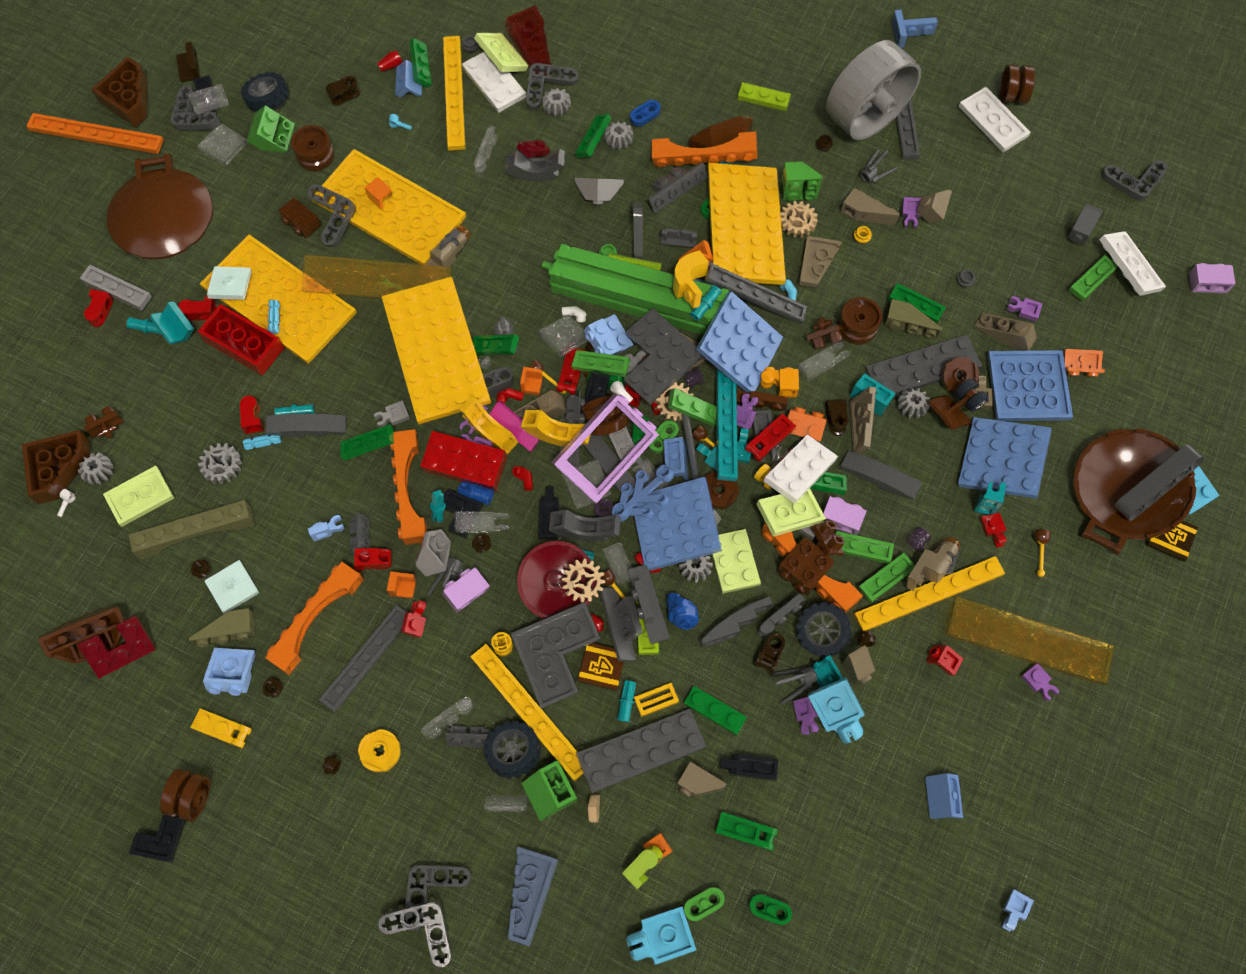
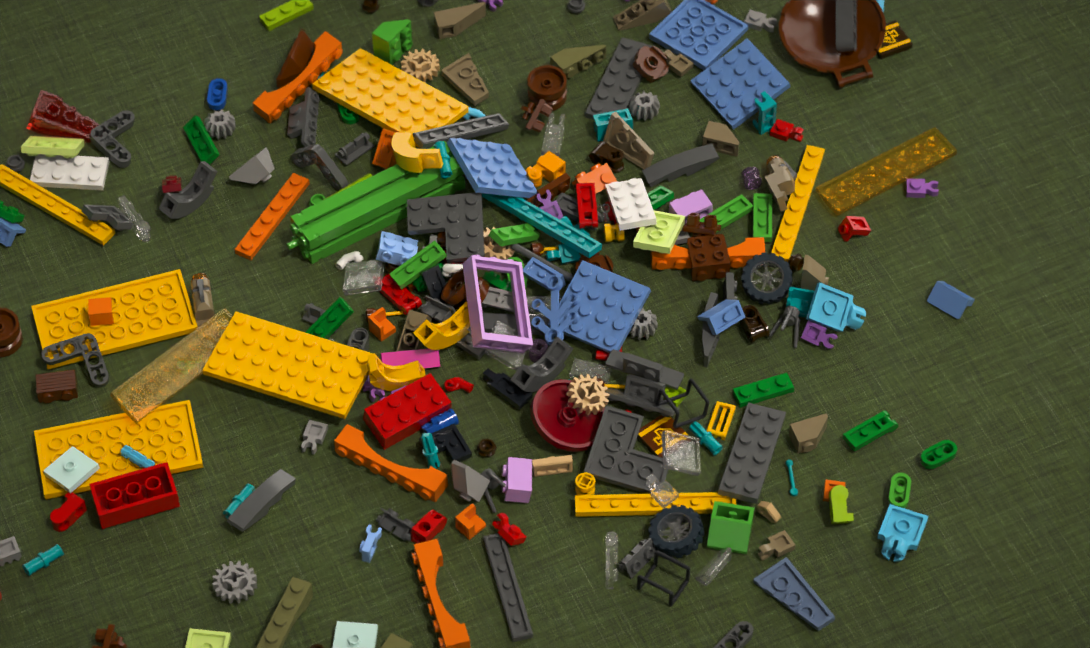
camera: 50 degrees left, 15 degrees down
(172, 324) = (65, 534): teal panel -> none
(249, 415) = (212, 535): red leg -> none
(261, 441) = (242, 542): medium azure axle -> none
(366, 442) = (324, 465): green plate -> none
(375, 740) = (595, 633): yellow plate -> none
(394, 122) = (33, 264): medium azure hand -> none
(473, 754) = (672, 600): none -> black piece
(474, 131) = (108, 213): none -> dark grey plate
(479, 521) = (469, 434): clear hinge -> none
(502, 604) = (552, 465): none -> tan plate
(509, 393) = (379, 344): red arm -> none
(537, 711) = (662, 492): none -> clear plate
(556, 102) = (141, 143): light grey gear -> none
(568, 842) = (778, 544): none -> dark tan plate
(569, 233) = (272, 216): none -> orange plate
(592, 694) = (681, 453): none -> clear plate
(623, 641) = (669, 400): none -> black piece
(634, 812) = (793, 492): none -> teal hinge
(682, 612) = (670, 354): blue head -> none
(693, 378) = (489, 219): wheel -> none
(735, 562) = (665, 300): yellowish green plate -> none
(749, 624) = (723, 315): none -> medium blue panel
(751, 766) = (826, 395): black hinge -> none
(862, 230) = (474, 38): yellow plate -> none
(927, 306) = (549, 49): green plate -> none
(935, 483) = (721, 138): none -> dark tan slope
(951, 412) = (670, 65): reddish brown plate -> none
(1017, 907) = (1062, 312): light blue plate -> none
(1042, 537) = (819, 109): hinge -> none
(1087, 419) = (758, 20): none -> light grey plate

